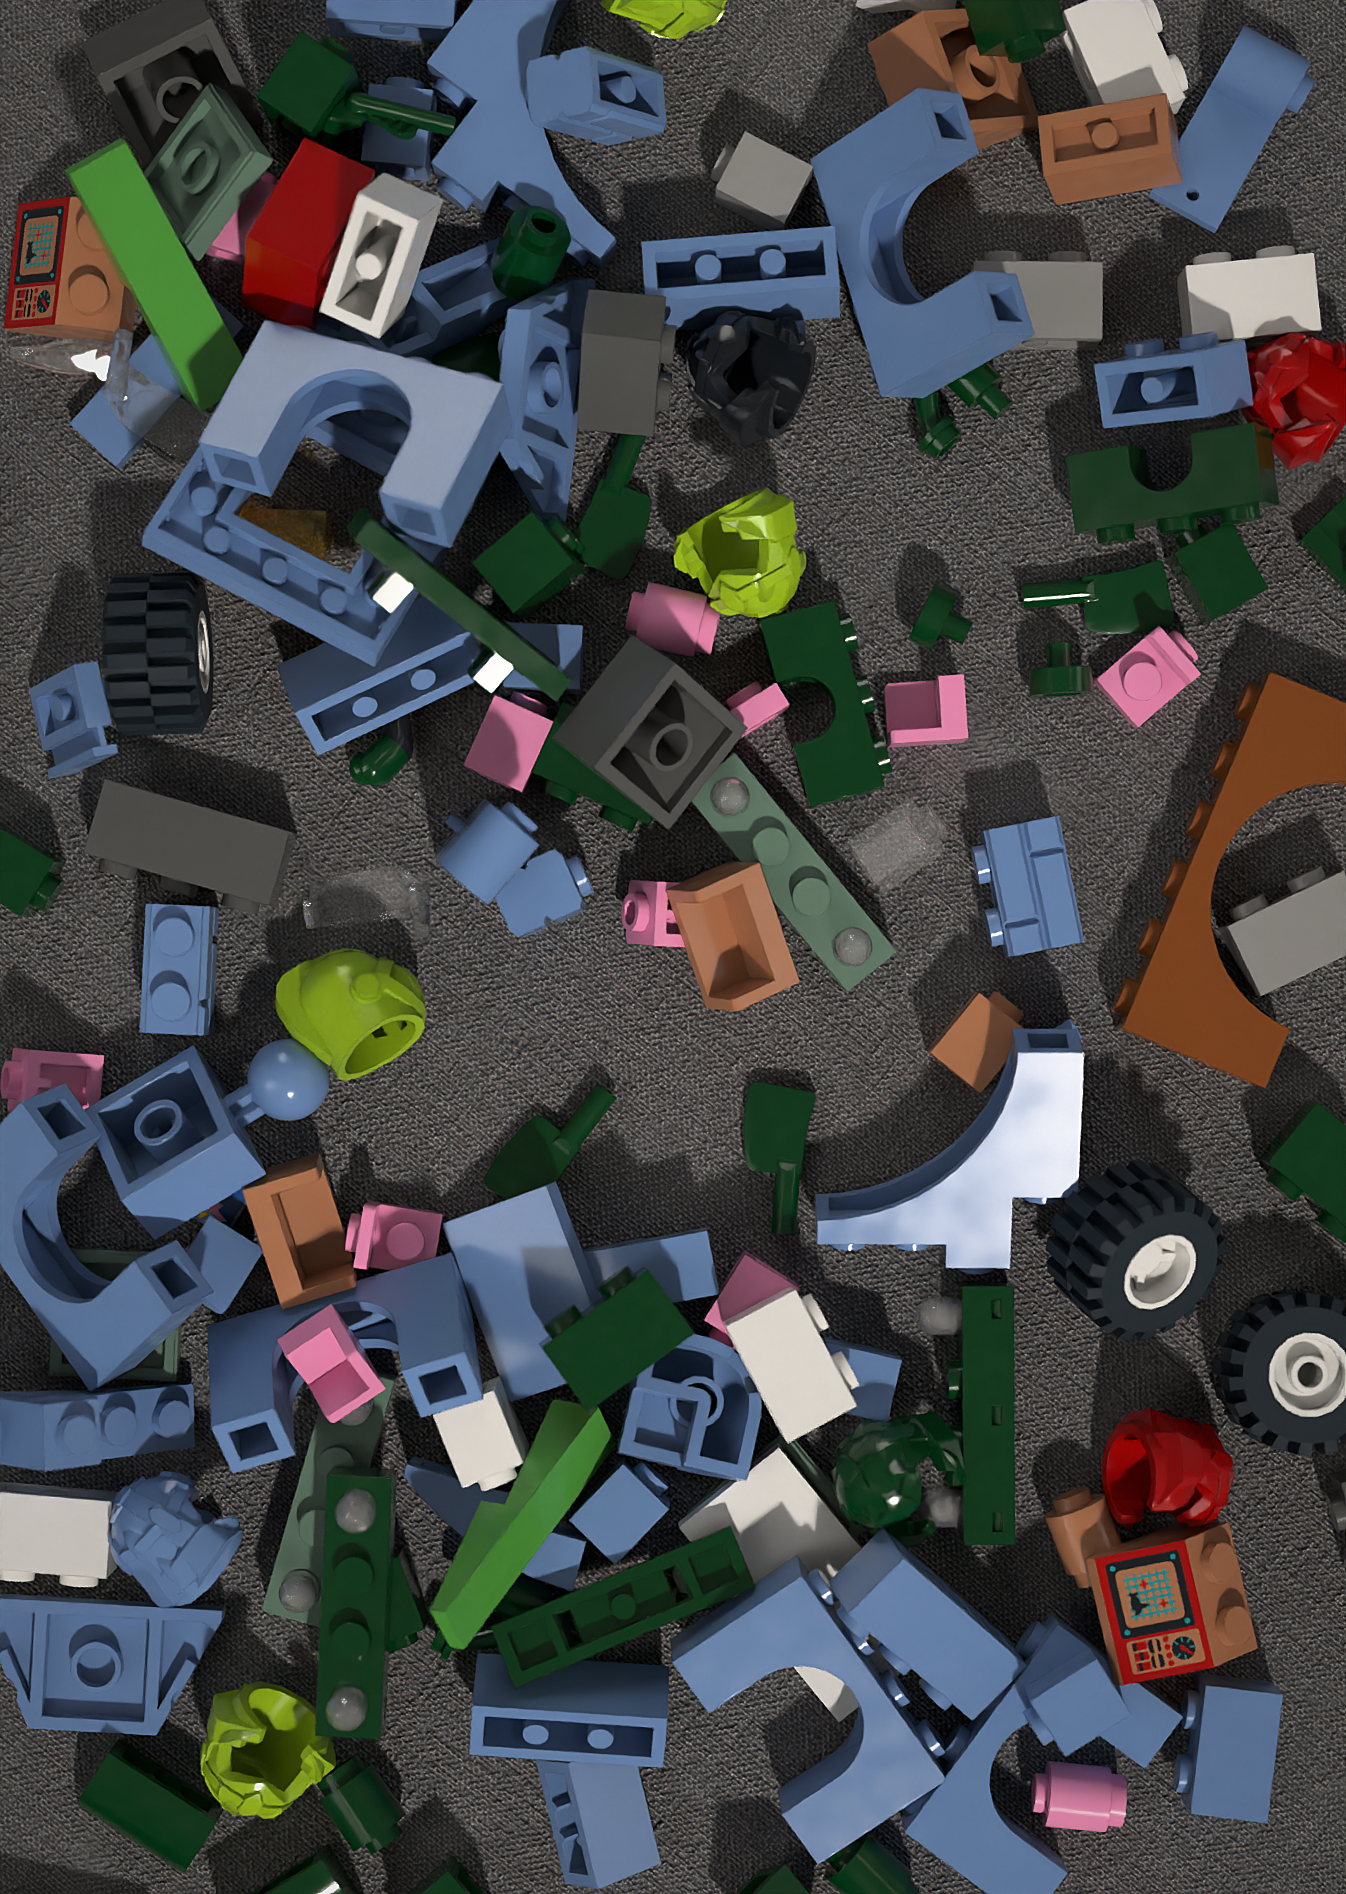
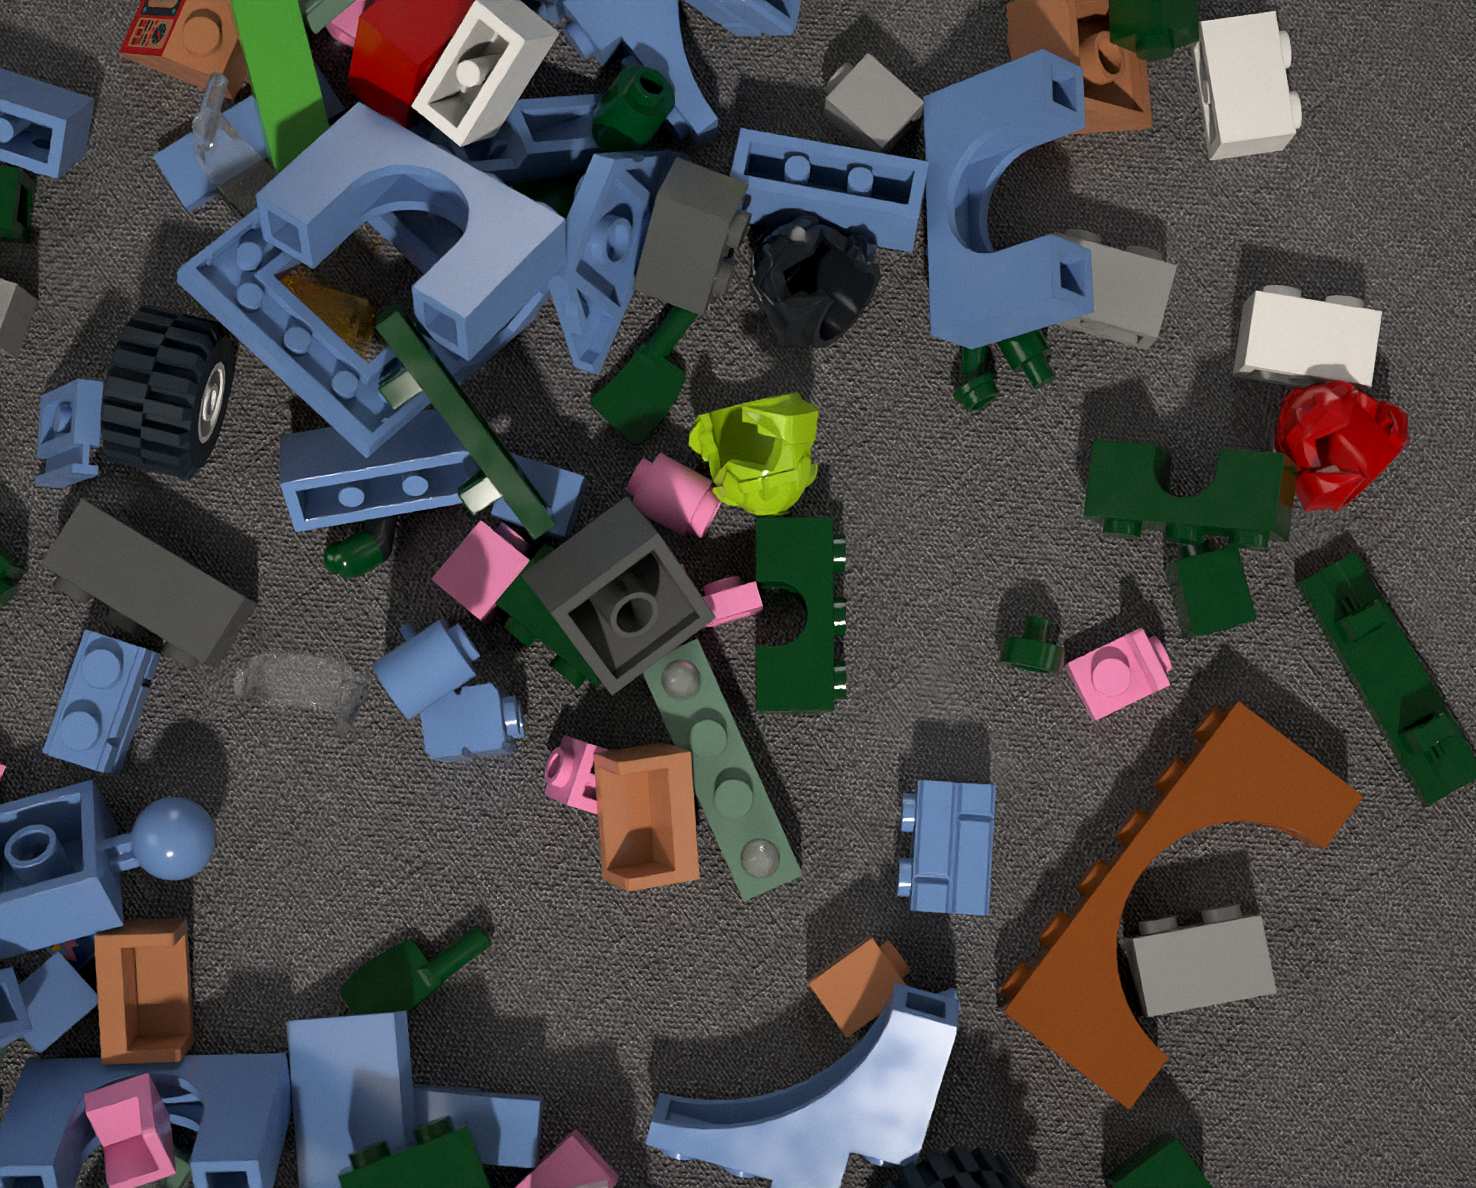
camera: 15 degrees right, 5 degrees down
(67, 356) = (167, 92): clear bar -> none
(343, 1001) = (246, 781): lime helmet -> none
(393, 1235) = (234, 1020): bright pink bracket -> none
(532, 563) = (551, 403): dark green brick -> none
(775, 1142) = (635, 1030): dark green piece -> none
(898, 845) = (833, 771): clear brick -> none
(926, 712) = (894, 650): bright pink panel -> none
(939, 619) = (930, 563): dark green tile -> none
(1110, 149) = (1211, 162): nougat panel -> none
(1111, 602) = (1101, 593): dark green piece -> none
(1173, 384) = (1216, 399): medium blue brick -> none
(1233, 125) = (1332, 175): medium blue door -> none

